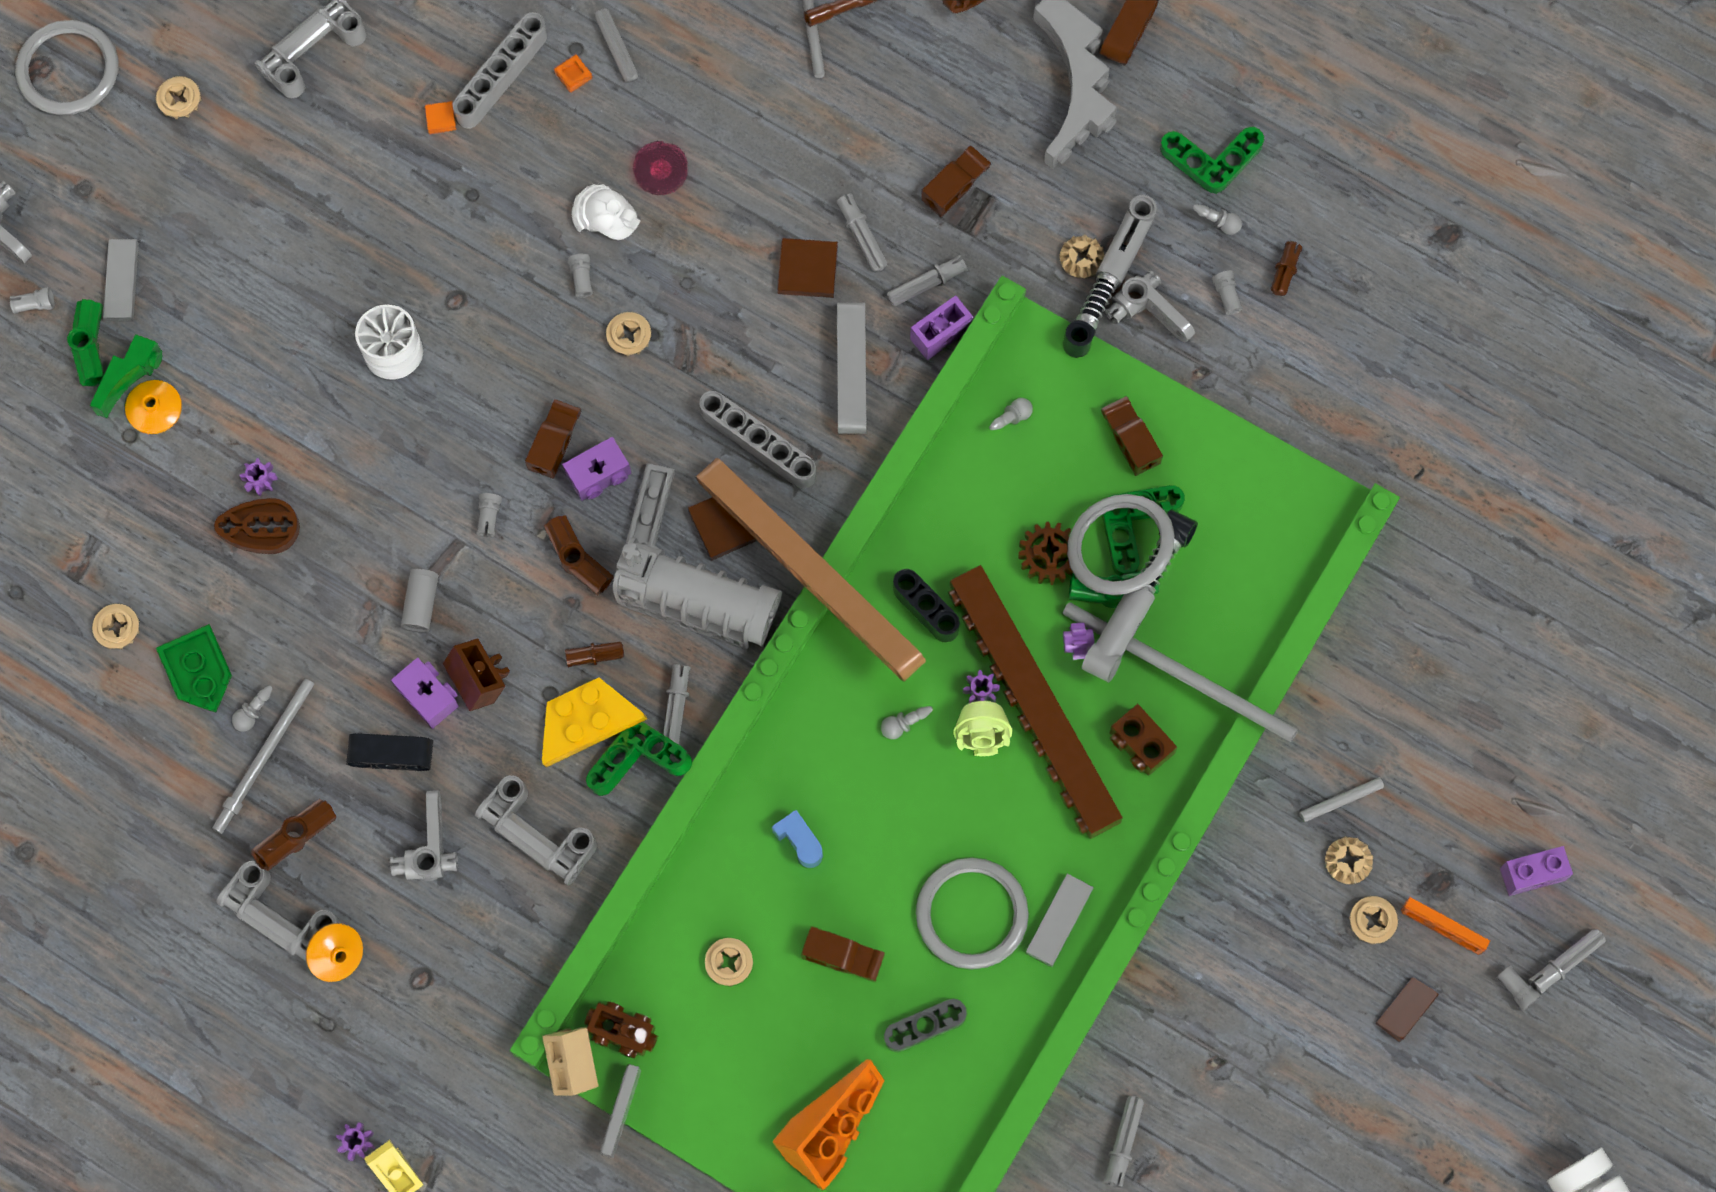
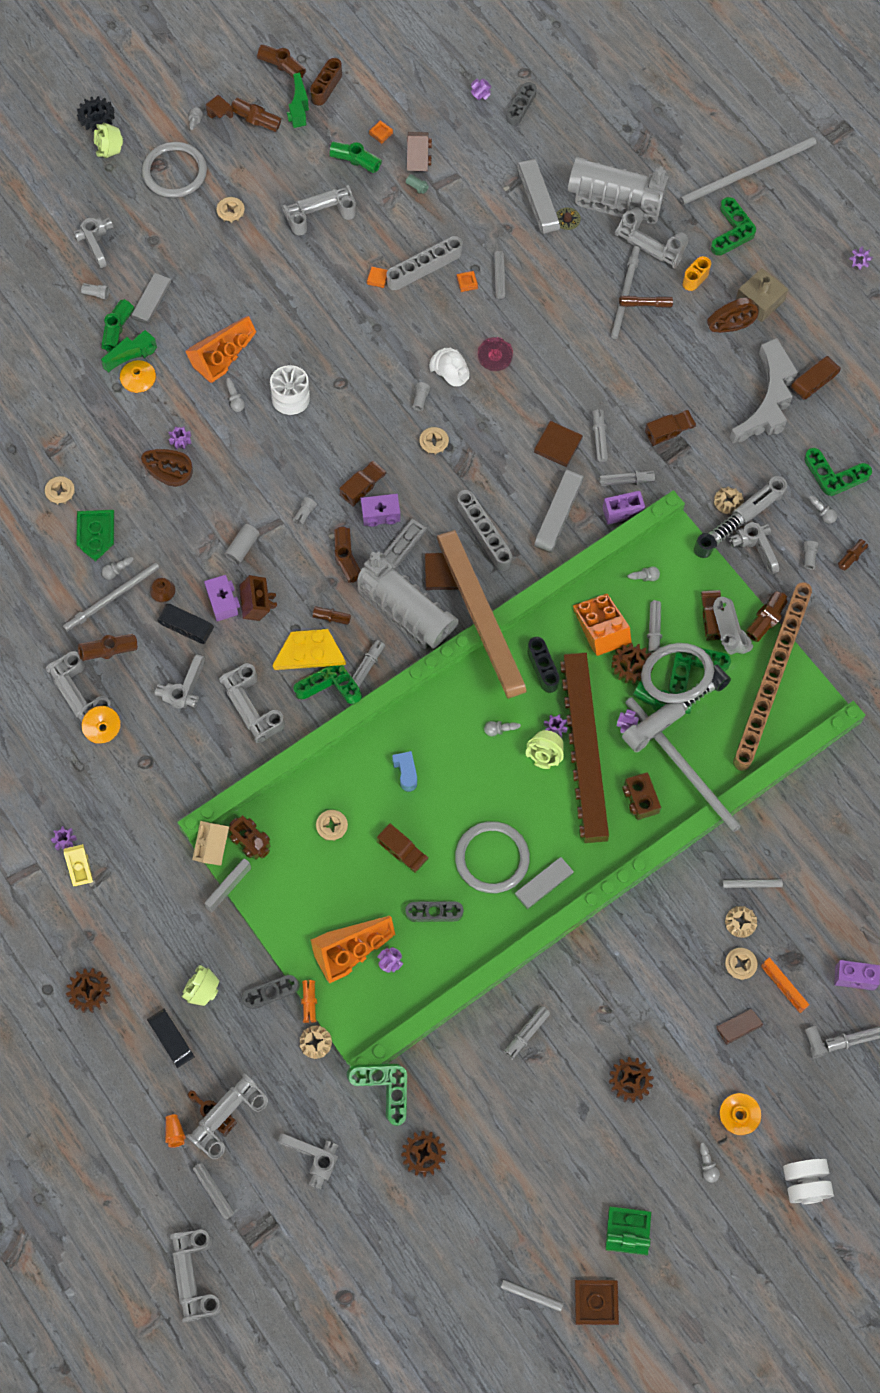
camera: 20 degrees right, 5 degrees down
(255, 324) = (216, 353): none -> orange wedge
(318, 390) = (237, 404): none -> light grey bar
(340, 716) = (162, 590): none -> reddish brown cone
(894, 1121) = (390, 960): none -> medium lavender gear
(984, 512) = (603, 624): none -> orange slope
(1062, 498) = (654, 626): none -> light grey axle
(1174, 460) = (732, 636): none -> light grey piece
(1207, 407) = (767, 616): none -> reddish brown piece
(1246, 503) = (770, 683): none -> medium nougat beam
(1282, 1137) = (628, 1072): none -> reddish brown gear
(1471, 1123) = (749, 1109): none -> light orange dish

